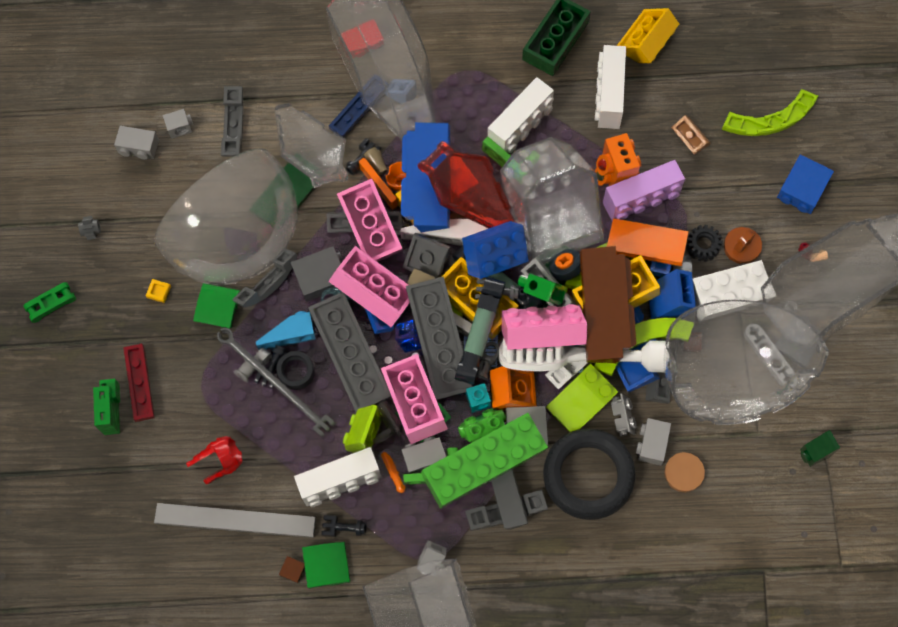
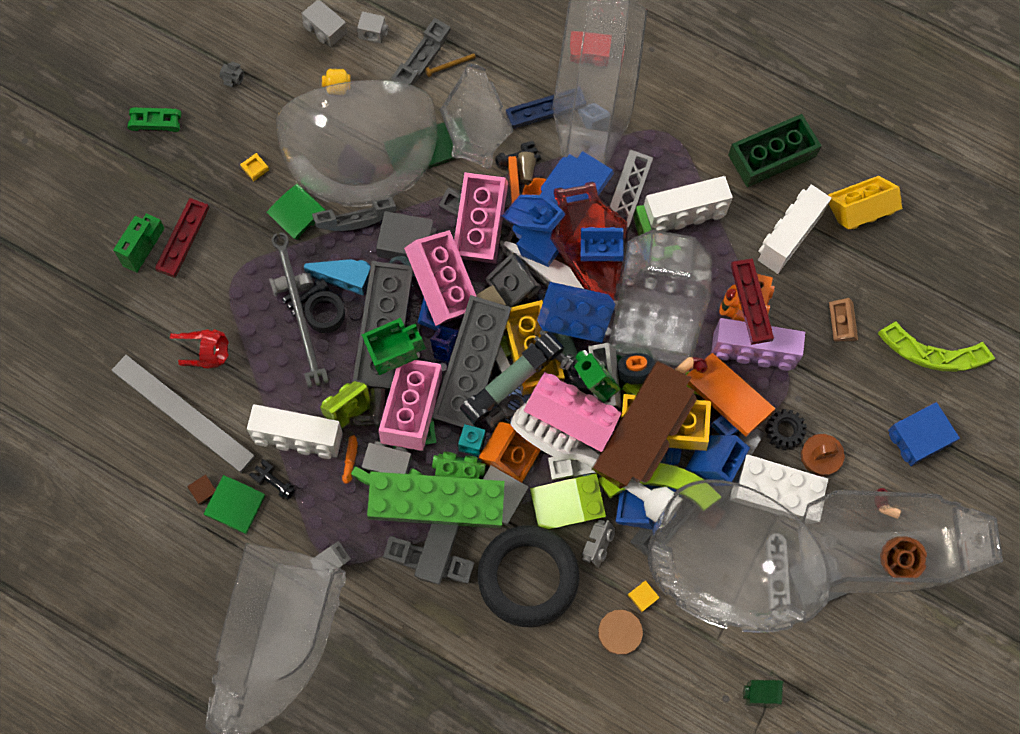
camera: 25 degrees right, 0 degrees up
(178, 183) = (335, 76): none -> yellow head
(247, 131) = (429, 71): none -> pearl gold piece
(370, 362) = (393, 345): none -> green piece
(413, 192) = (534, 213): none -> blue piece
(459, 128) = (623, 182): none -> light grey fence
(480, 185) = (602, 244): none -> blue bracket
(605, 235) = (692, 363): none -> arm
(624, 160) = (752, 301): none -> dark red plate
(654, 441) = (609, 585): light grey brick -> none
(683, 434) = (643, 596): none -> yellow tile
(853, 284) = (903, 557): none -> dark orange cylinder

